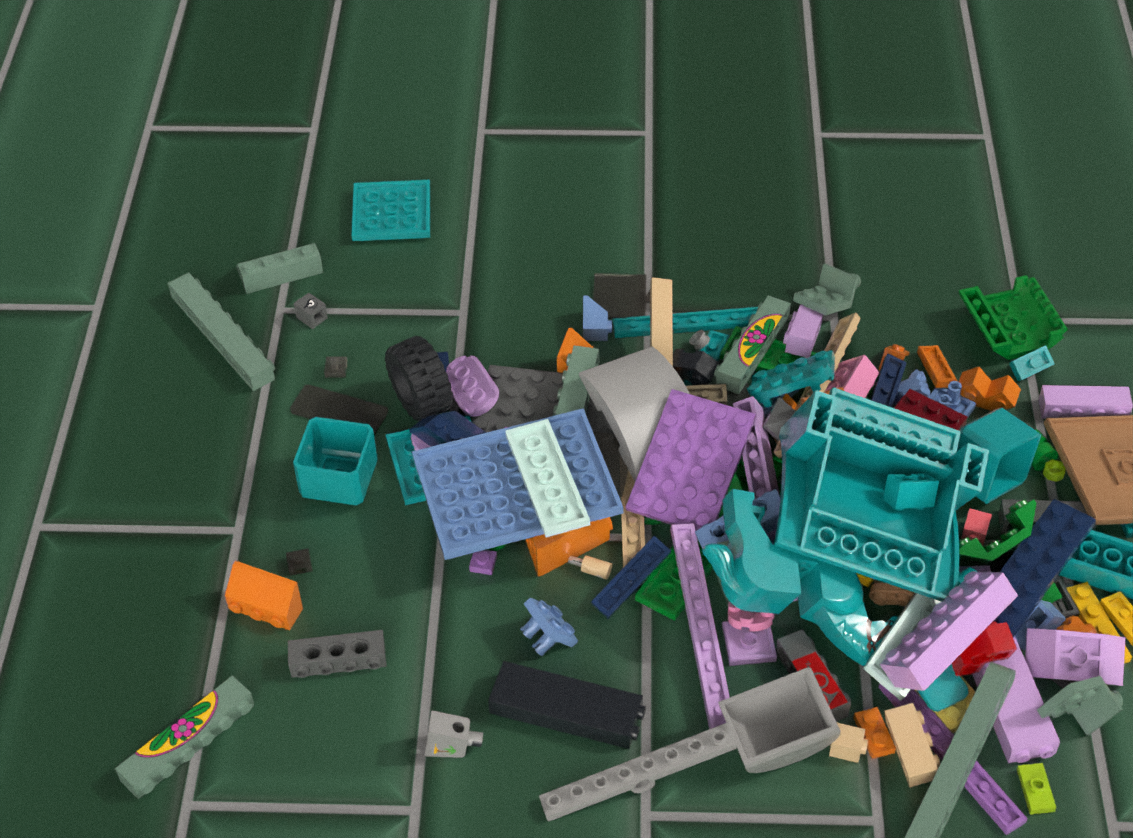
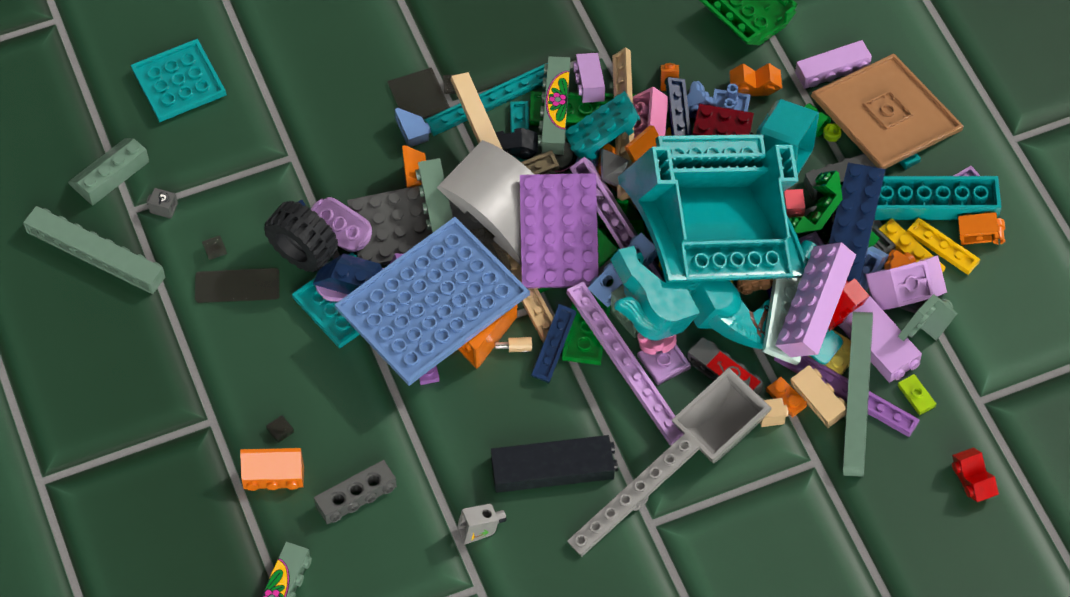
camera: 25 degrees left, 10 degrees up
(335, 461) = (266, 322): teal plate -> none
(547, 478) = (458, 288): light aqua plate -> none
(550, 621) = (505, 400): medium blue plate -> none
(699, 340) = (506, 114): light grey bush -> none
(833, 292) = (595, 34): sand green plate -> none
(910, 491) = (742, 197): teal brick -> none
(936, 365) = (707, 72): orange plate -> none
(1031, 363) = (779, 43): teal plate -> none

